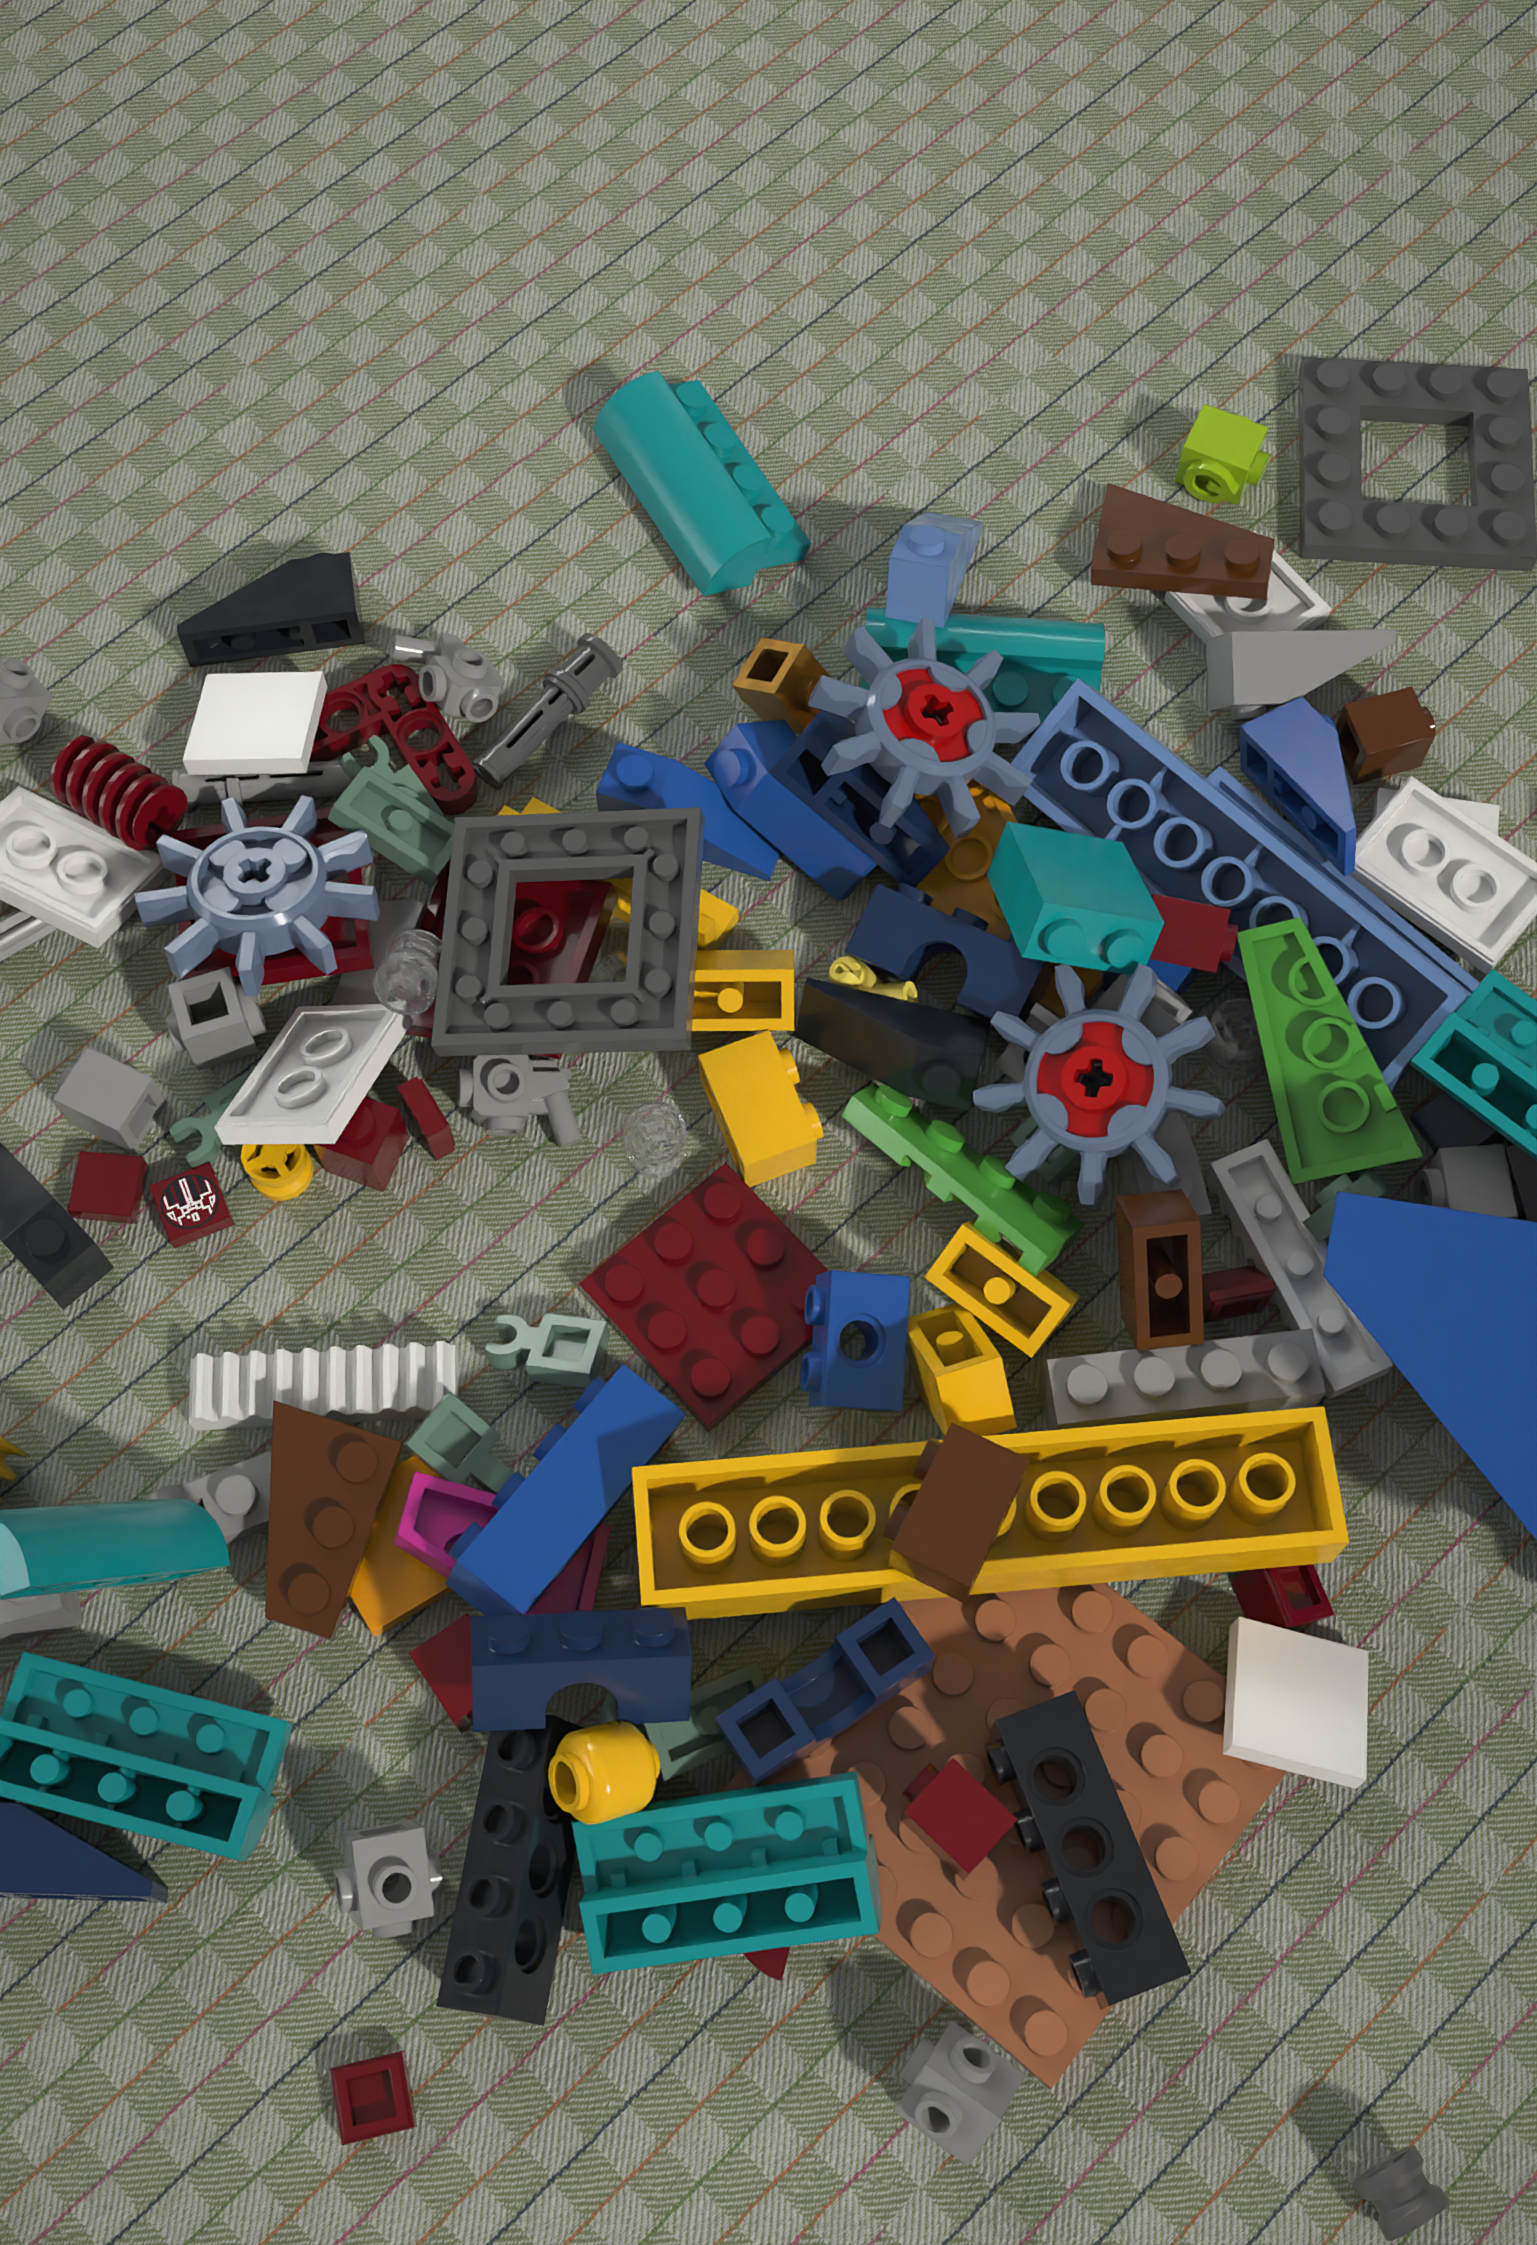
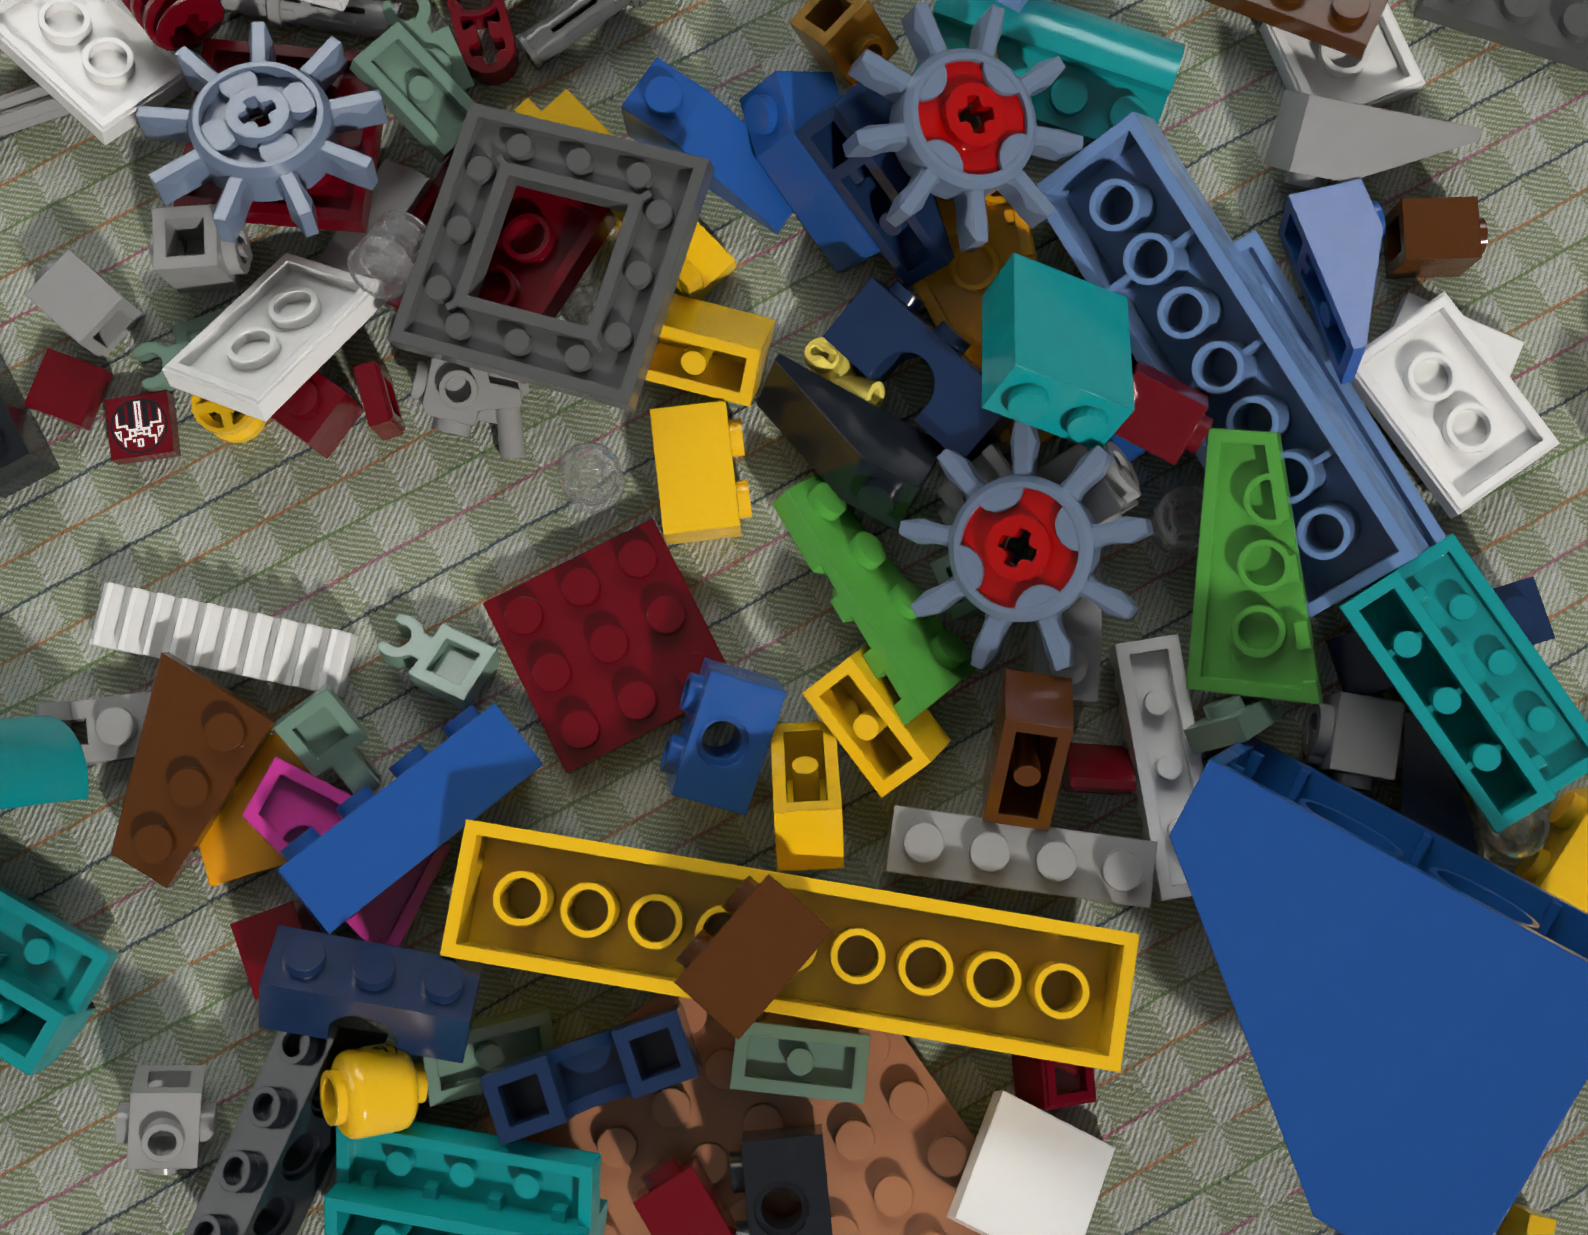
camera: 15 degrees right, 15 degrees up
(1028, 1635) = (801, 1061): none -> sand green plate

